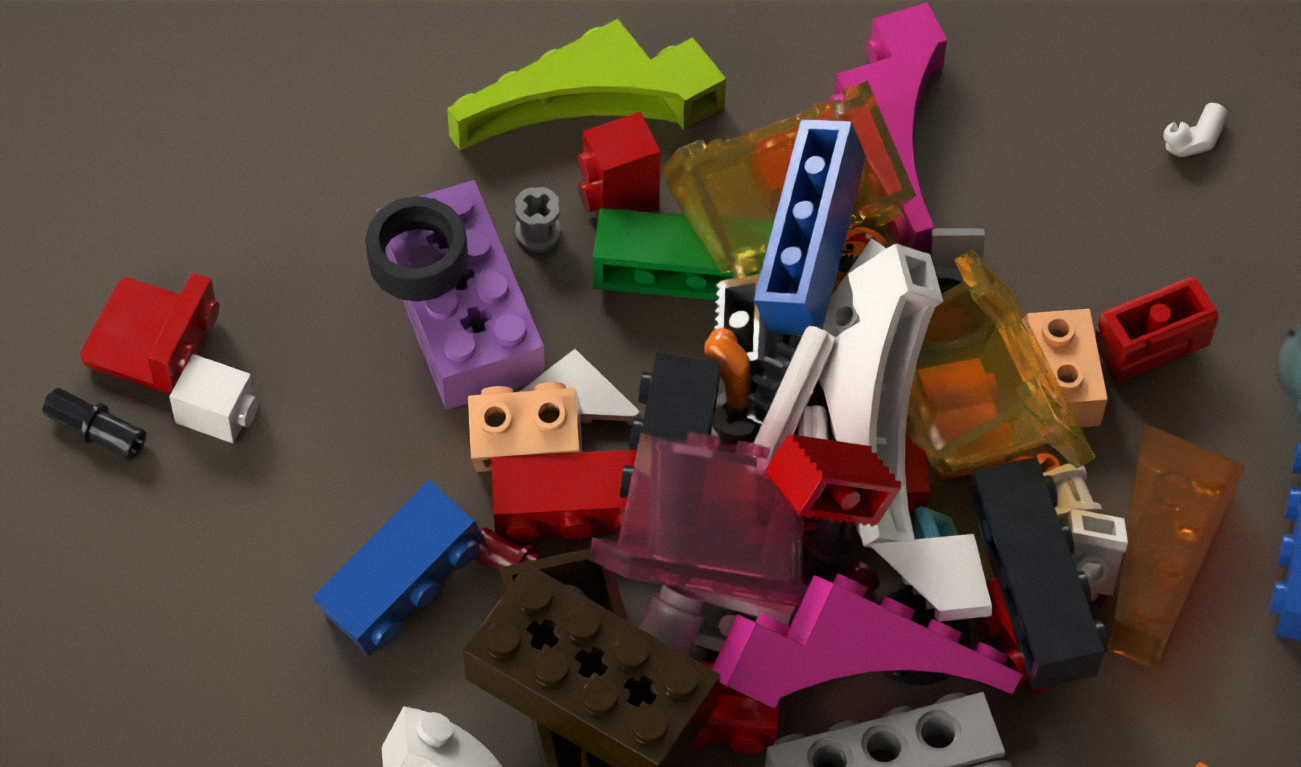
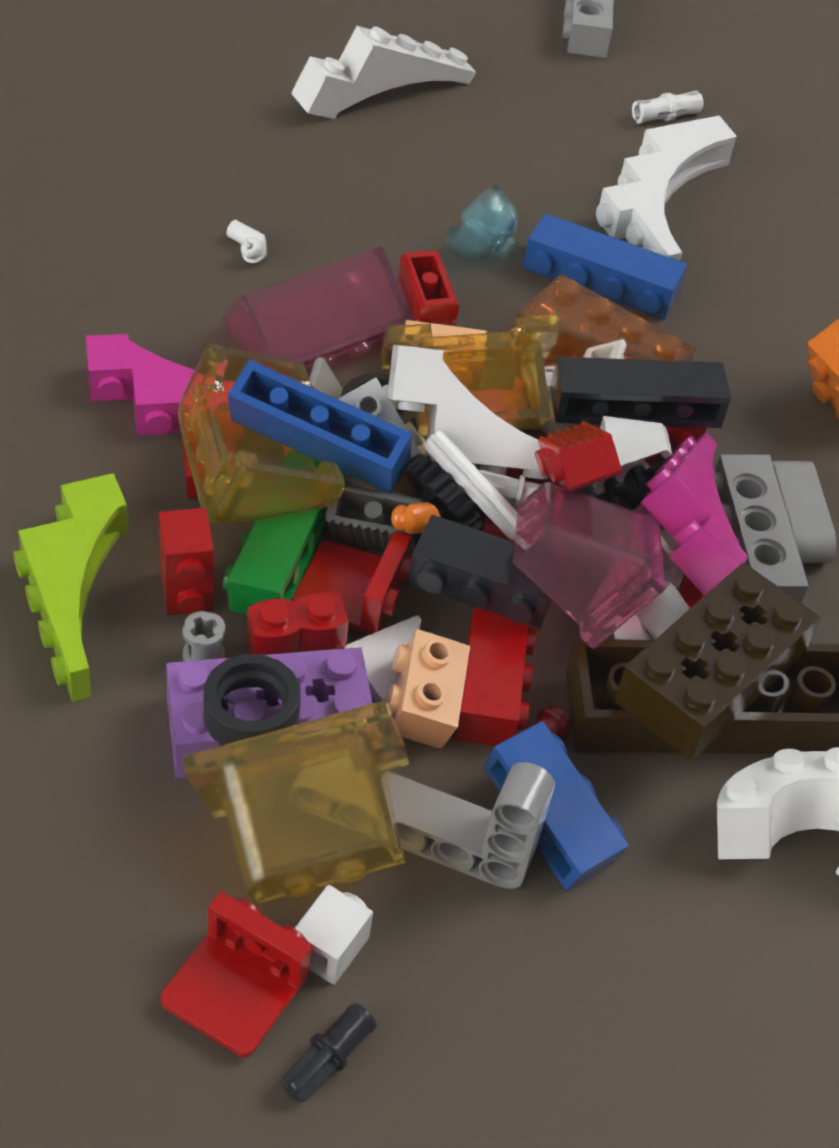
camera: 85 degrees left, 10 degrees down
(327, 337) = (307, 800): none -> clear yellow windscreen
(346, 498) = (471, 838): none -> light grey beam
(572, 296) = (297, 626): none -> red brick
(652, 324) = (362, 579): none -> red bracket
(1063, 222) = (322, 311): none -> clear pink windscreen

